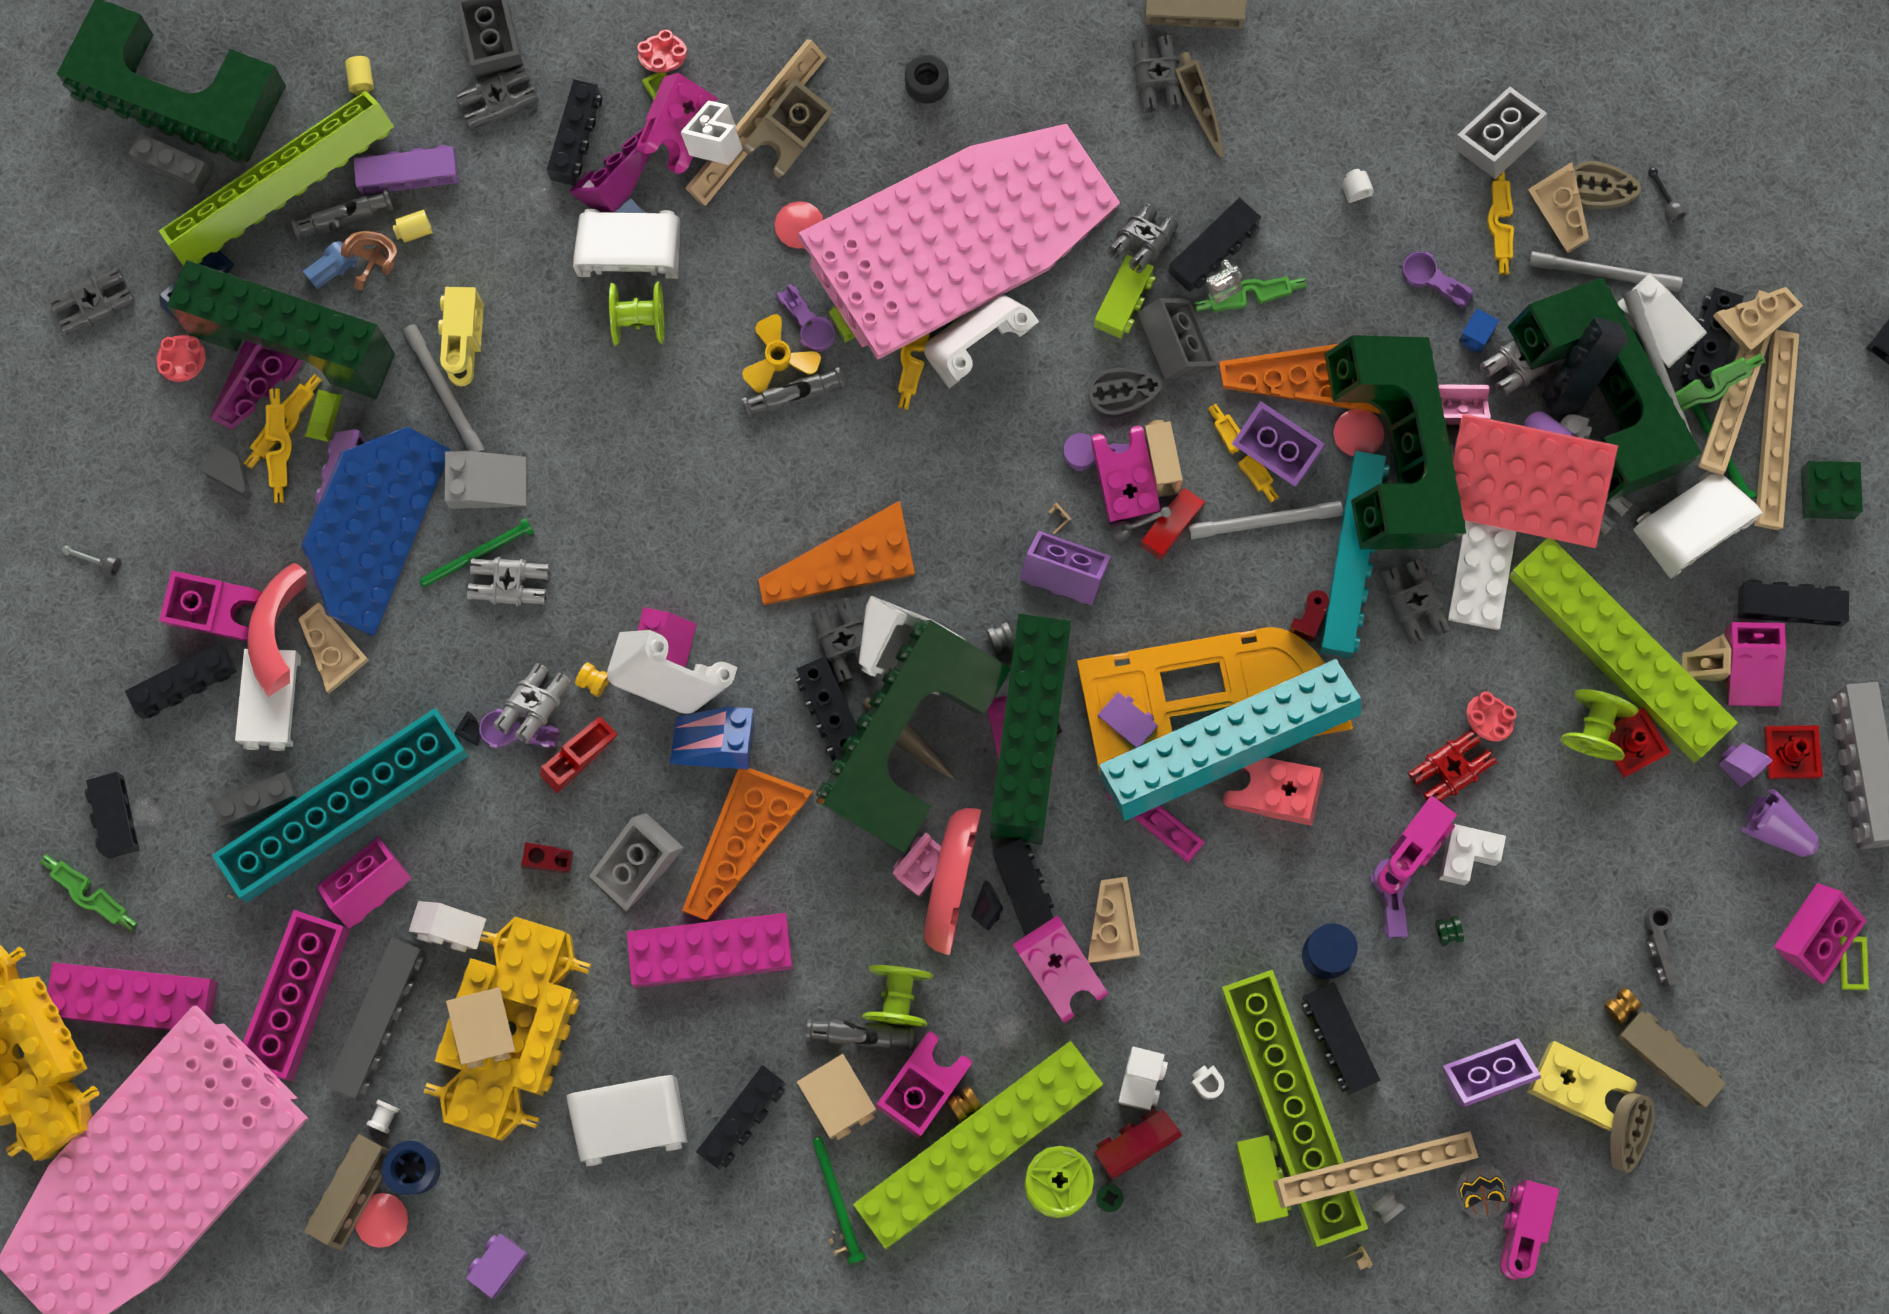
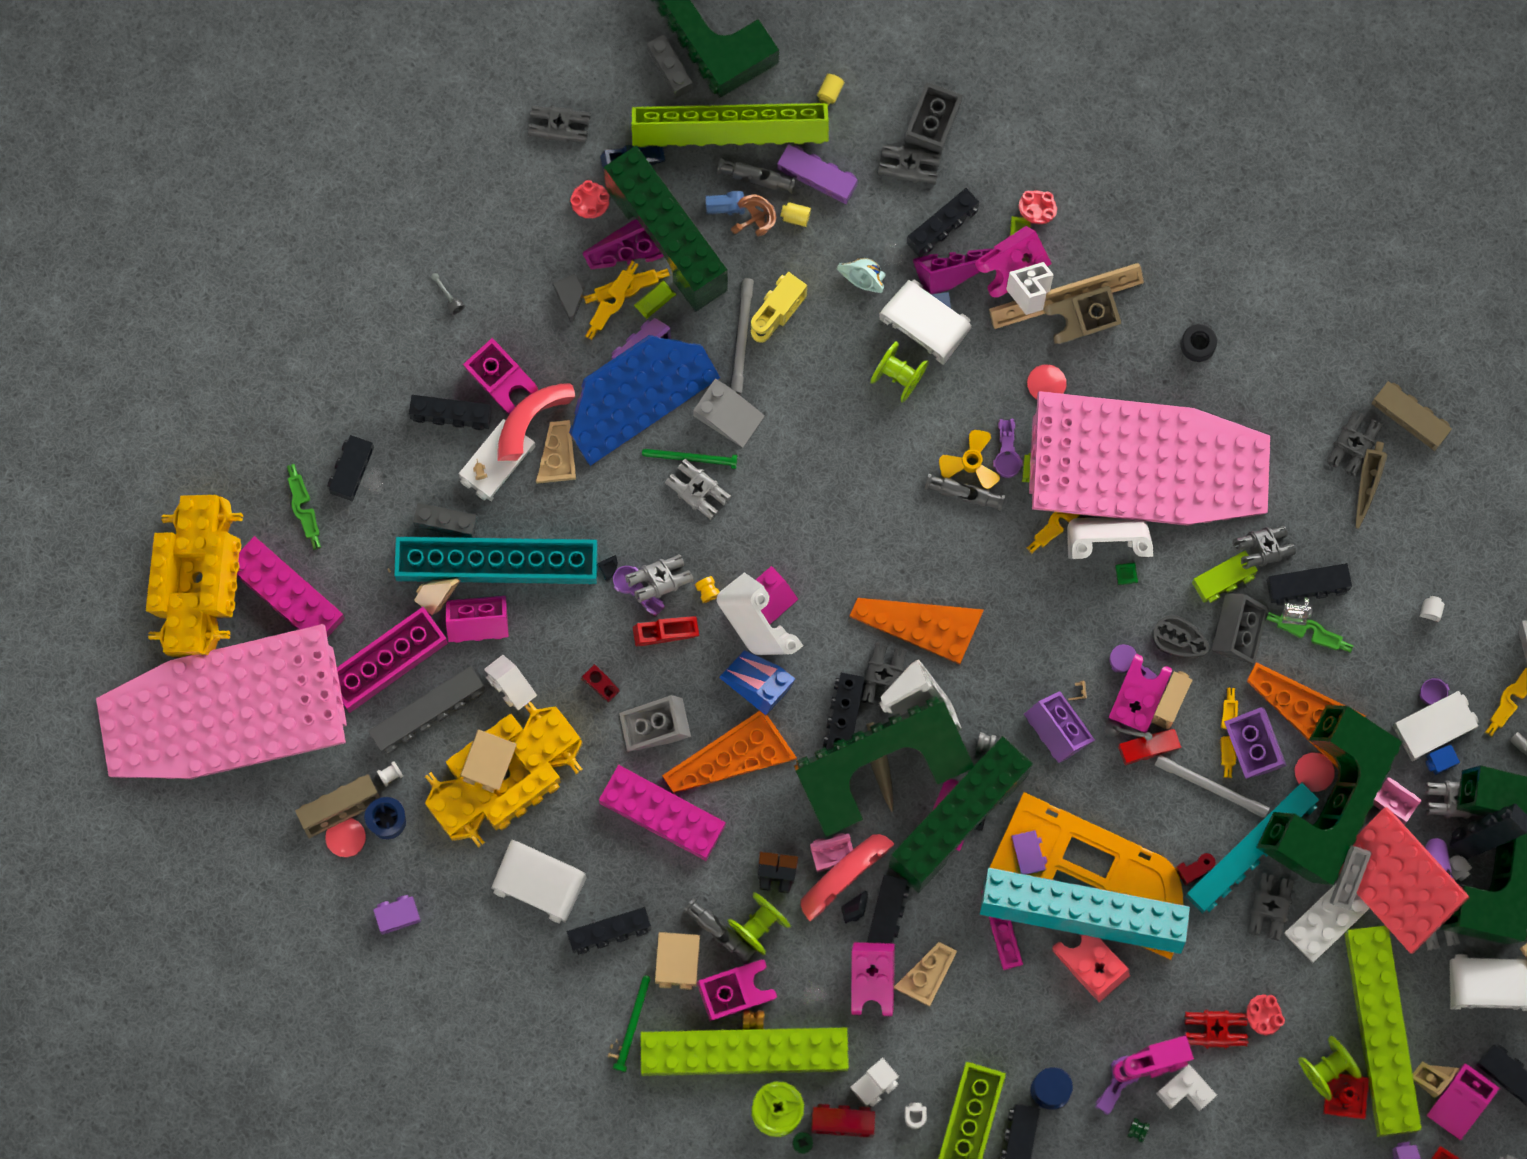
camera: 30 degrees right, 0 degrees up
(255, 720) = (479, 468): none -> tan piece
(299, 887) = (435, 594): none -> tan slope
(528, 237) = (866, 272): none -> light aqua hat
(868, 934) = (785, 874): none -> black hips
(1020, 363) = (1126, 573): none -> green tile
(1447, 300) = (1435, 725): none -> white panel
(1477, 513) = (1350, 877): none -> light grey plate

